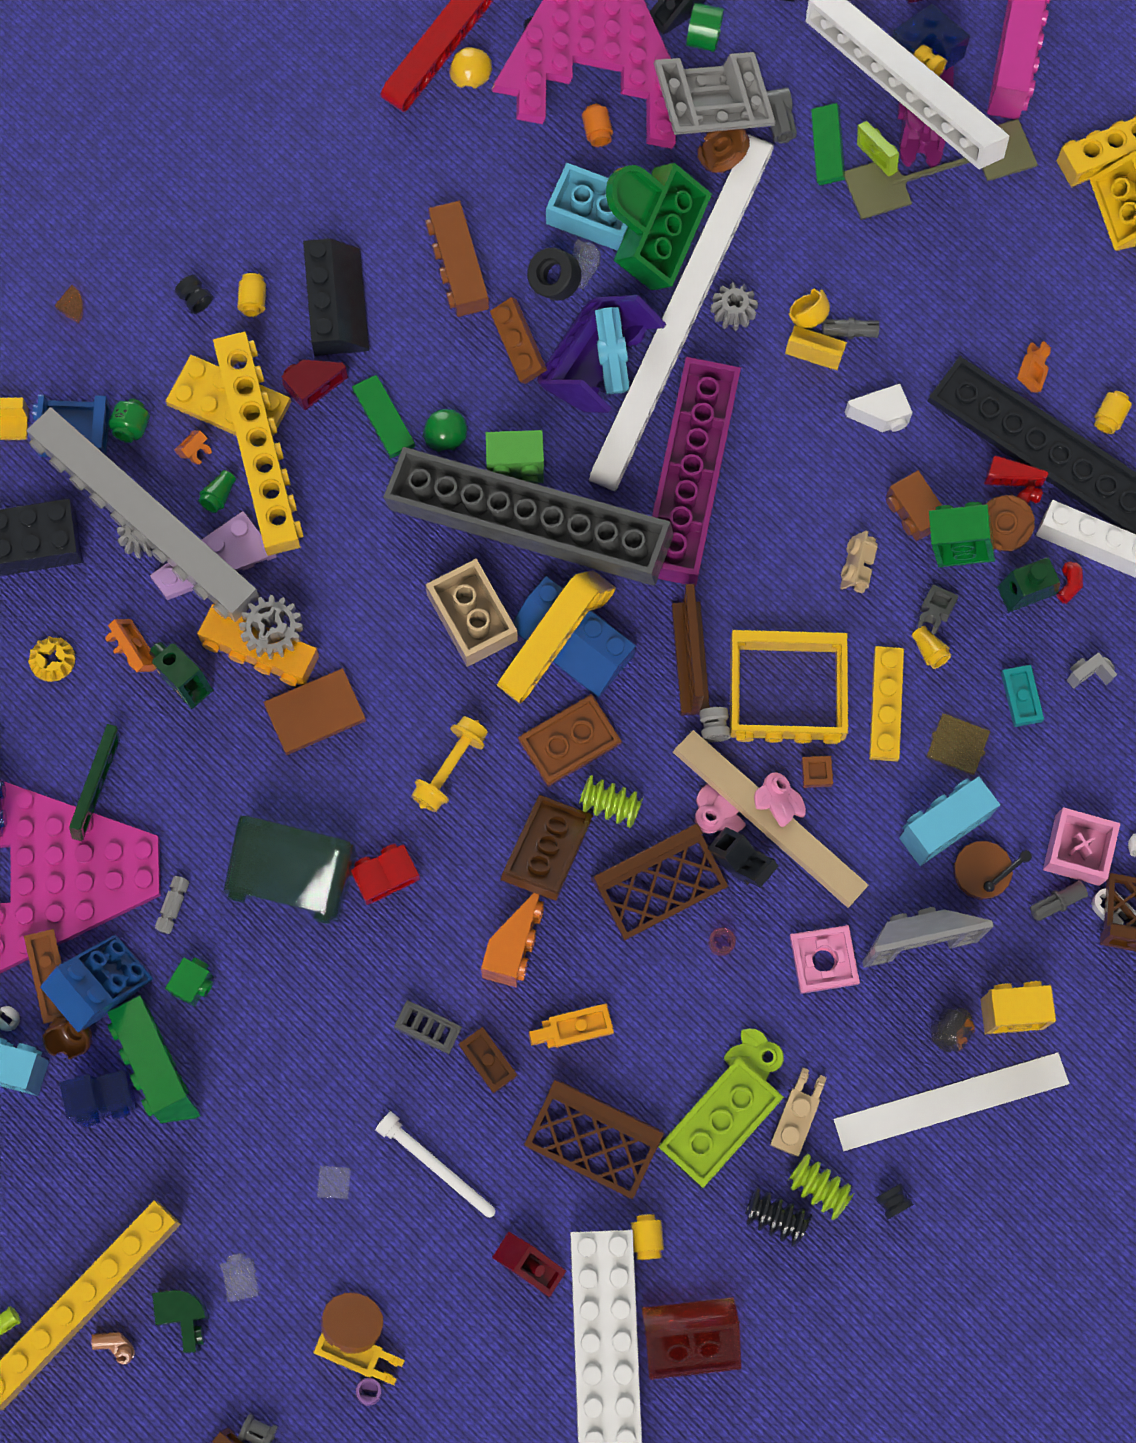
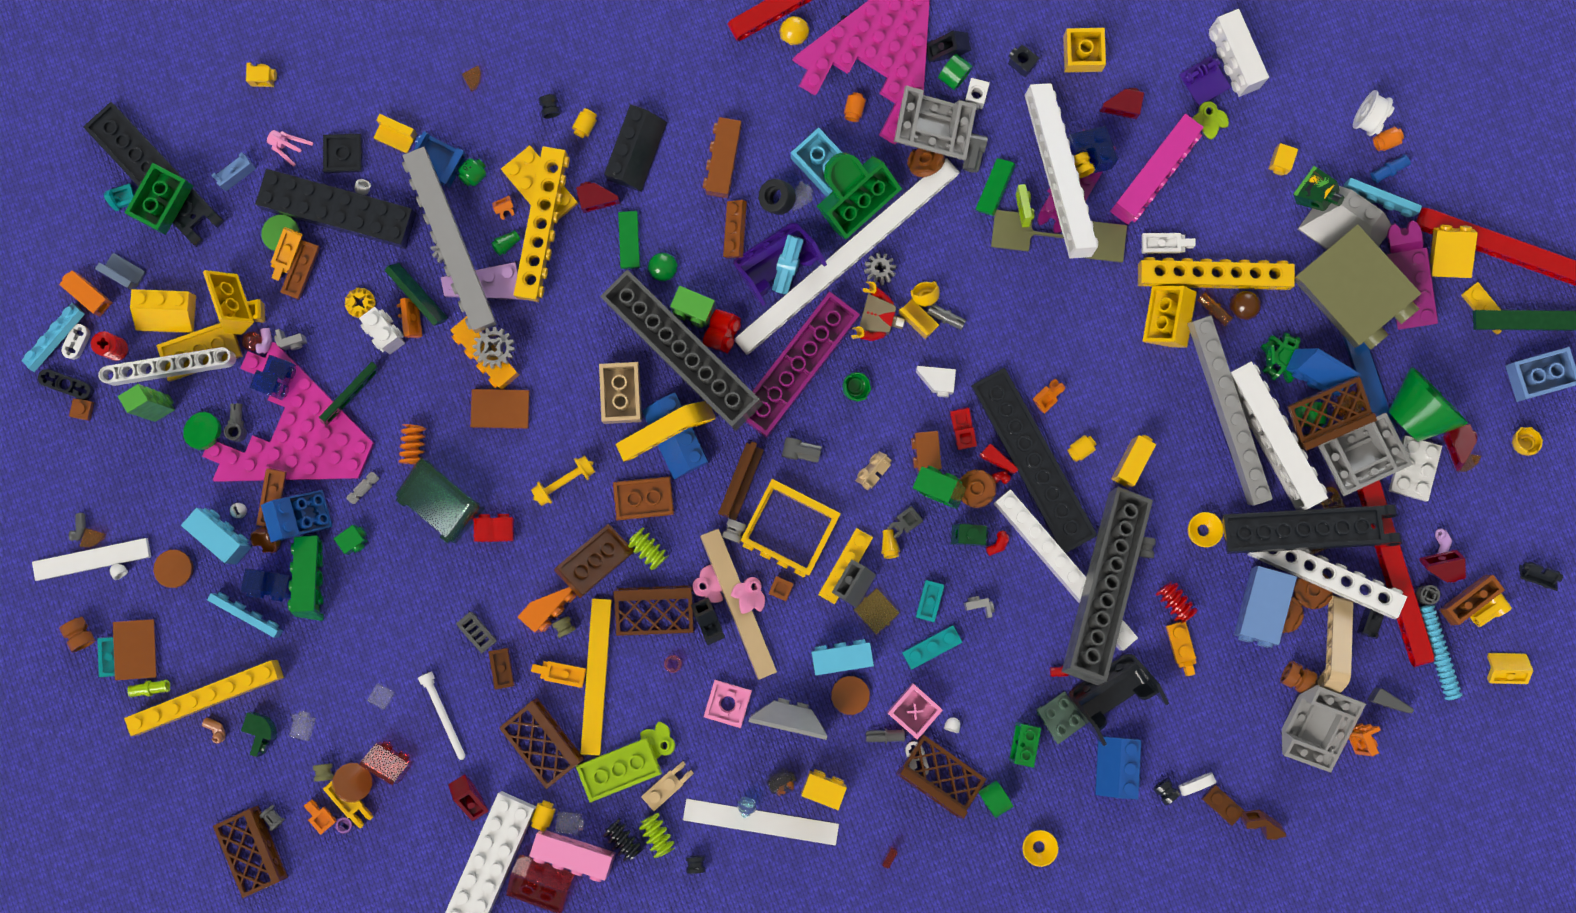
camera: 30 degrees right, 10 degrees up
(71, 1156) = (238, 610): none -> medium azure plate
(102, 676) = (379, 326): none -> white brick
(126, 611) = (416, 294): none -> dark green tile
(180, 673) = (429, 349): dark green torso -> none
(214, 812) = (411, 444): none -> orange piece
(302, 1329) = (323, 772): none -> olive wheel
(330, 1399) = (321, 818): none -> orange plate
(389, 1268) = (386, 762): none -> clear red slope
(547, 961) = (564, 627): none -> olive wheel
(568, 468) = (721, 331): none -> red brick
(625, 1011) = (596, 677): none -> yellow tile
(689, 1231) = (569, 823): none -> clear bracket
(719, 1268) = (572, 854): none -> bright pink brick
(743, 581) = (796, 450): none -> dark grey piece
(745, 33) = (977, 86): none -> white brick
(762, 363) = (877, 315): none -> torso
(781, 465) = (856, 386): none -> green hair
(912, 717) = (854, 583): none -> dark grey brick
(923, 1087) = (746, 806): none -> clear light blue plate
(945, 458) = (963, 428): none -> red slope
(1024, 857) = (878, 699): black hinge -> none
(1056, 756) = (932, 647): none -> teal plate
(1078, 118) = (1165, 243): none -> white hinge

